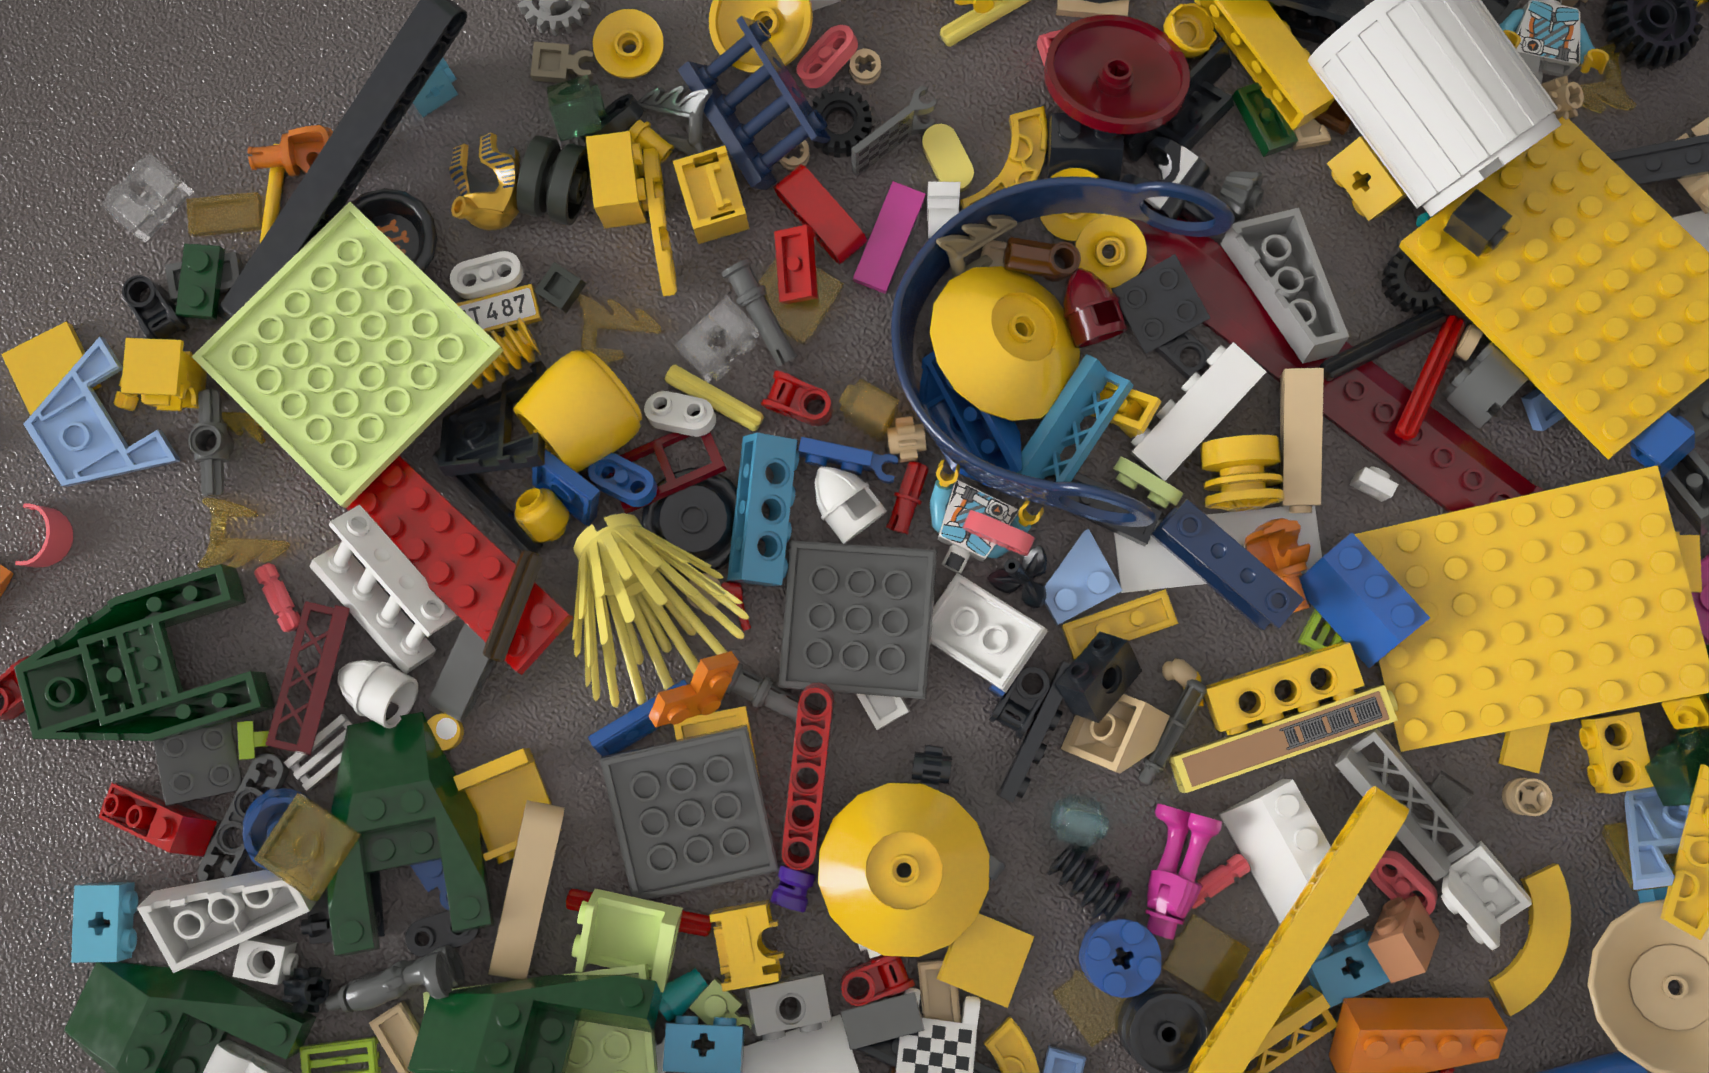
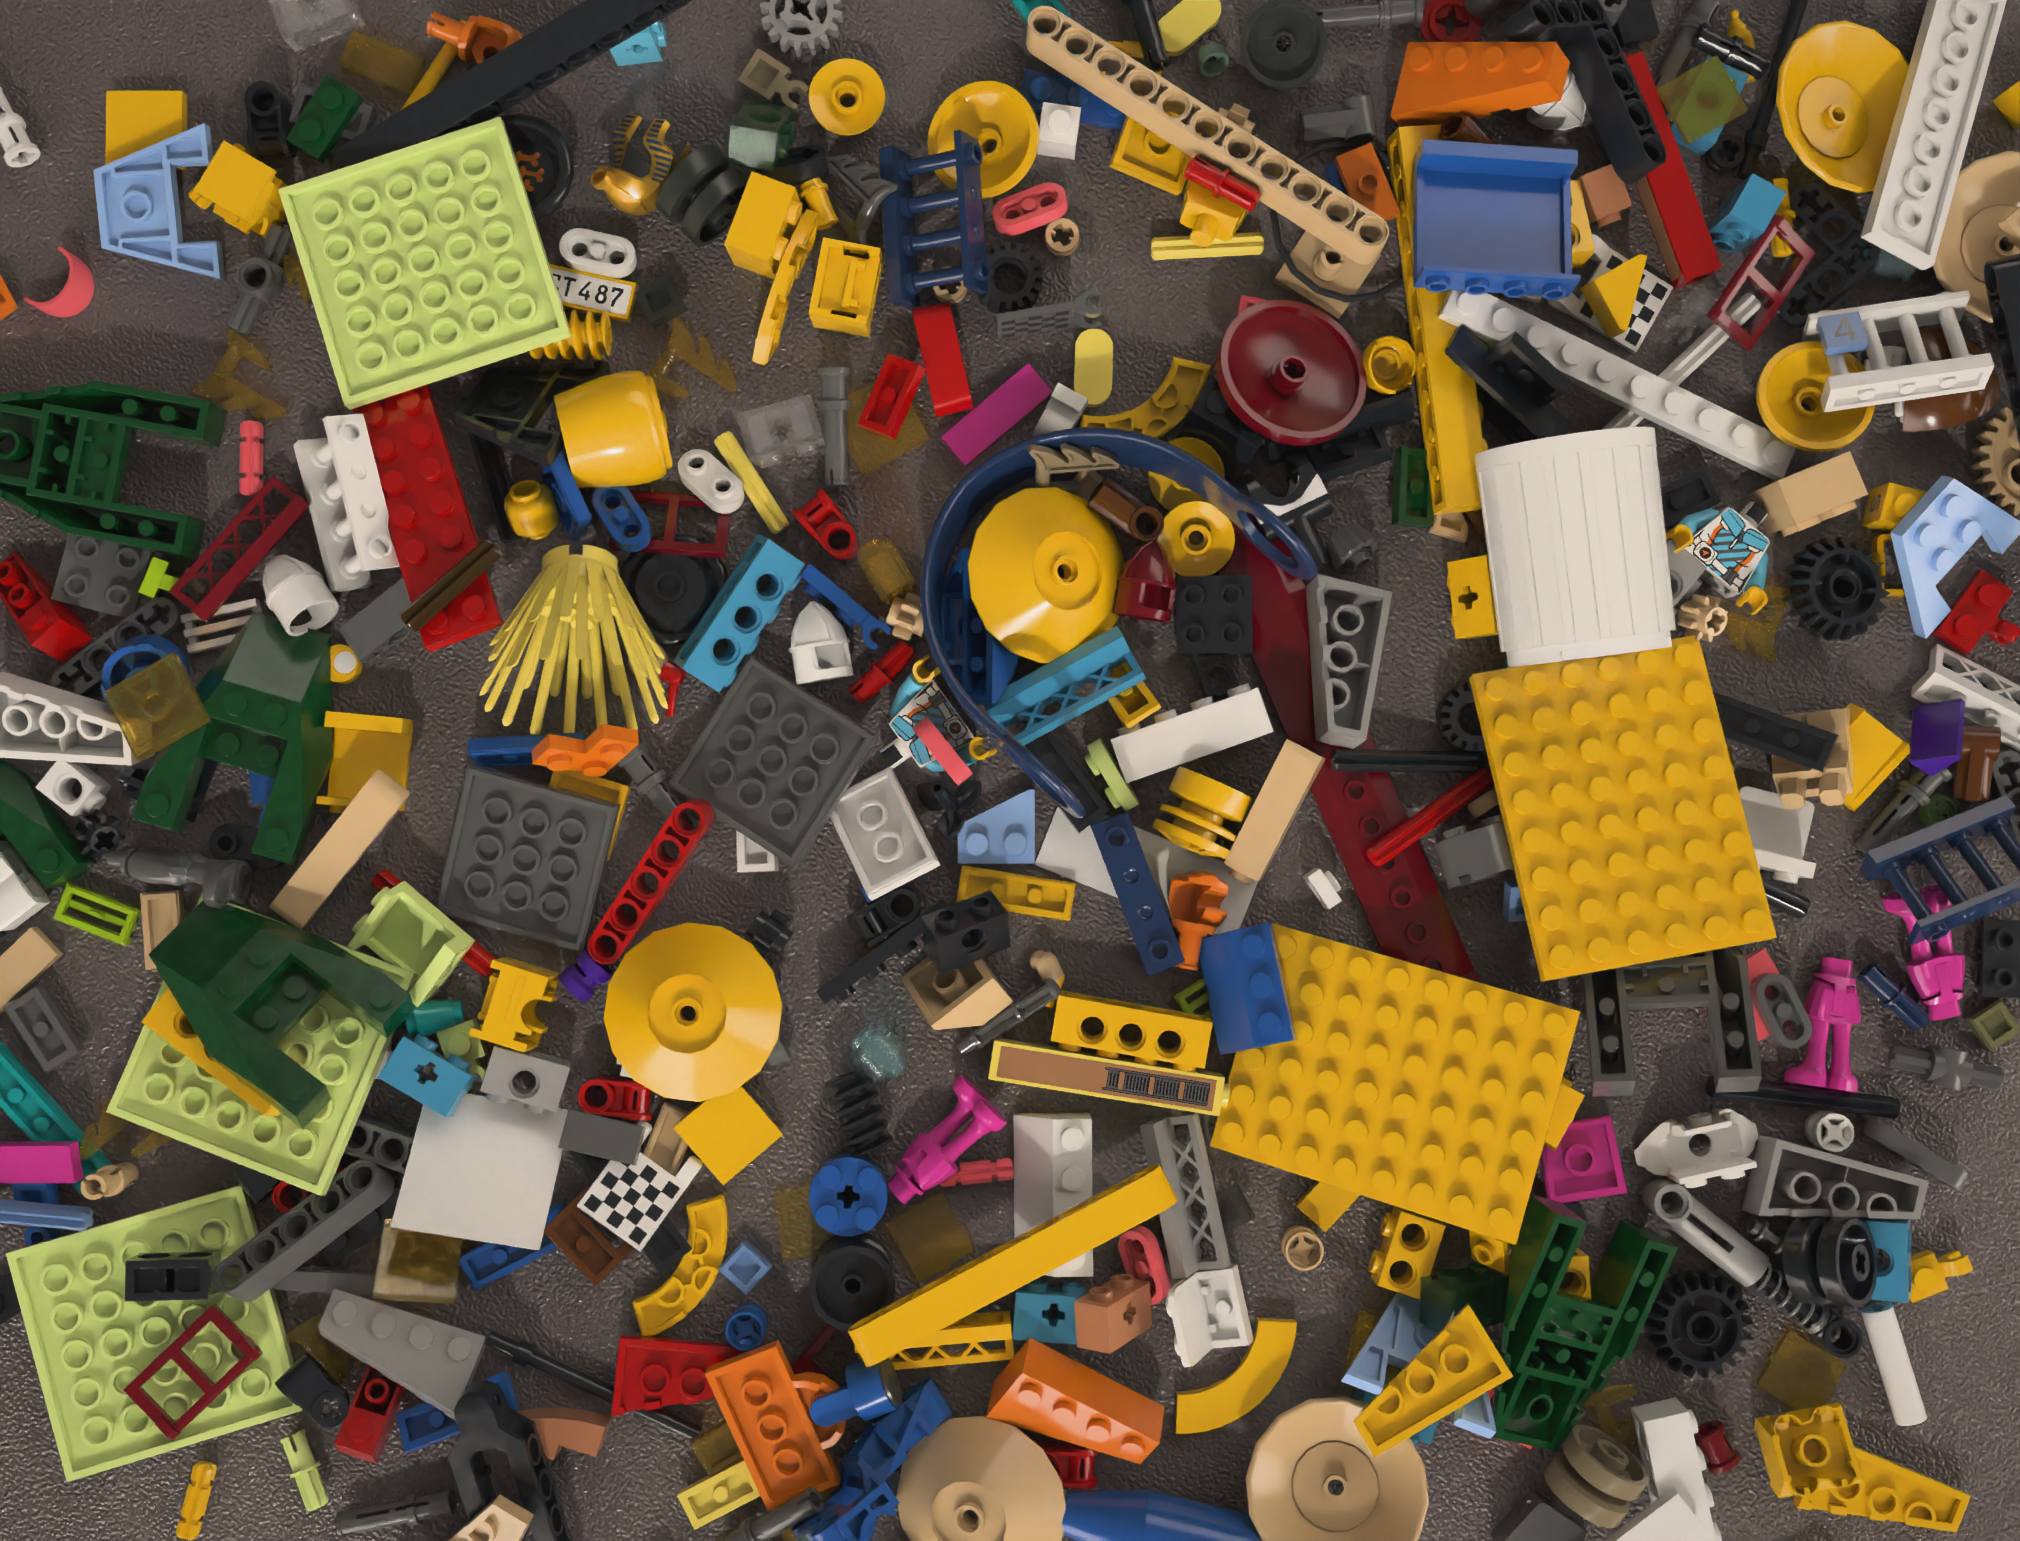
camera: 25 degrees right, 5 degrees up
(1478, 223) = (1548, 697): black brick -> none
(1664, 443) = (1602, 994): blue brick -> none

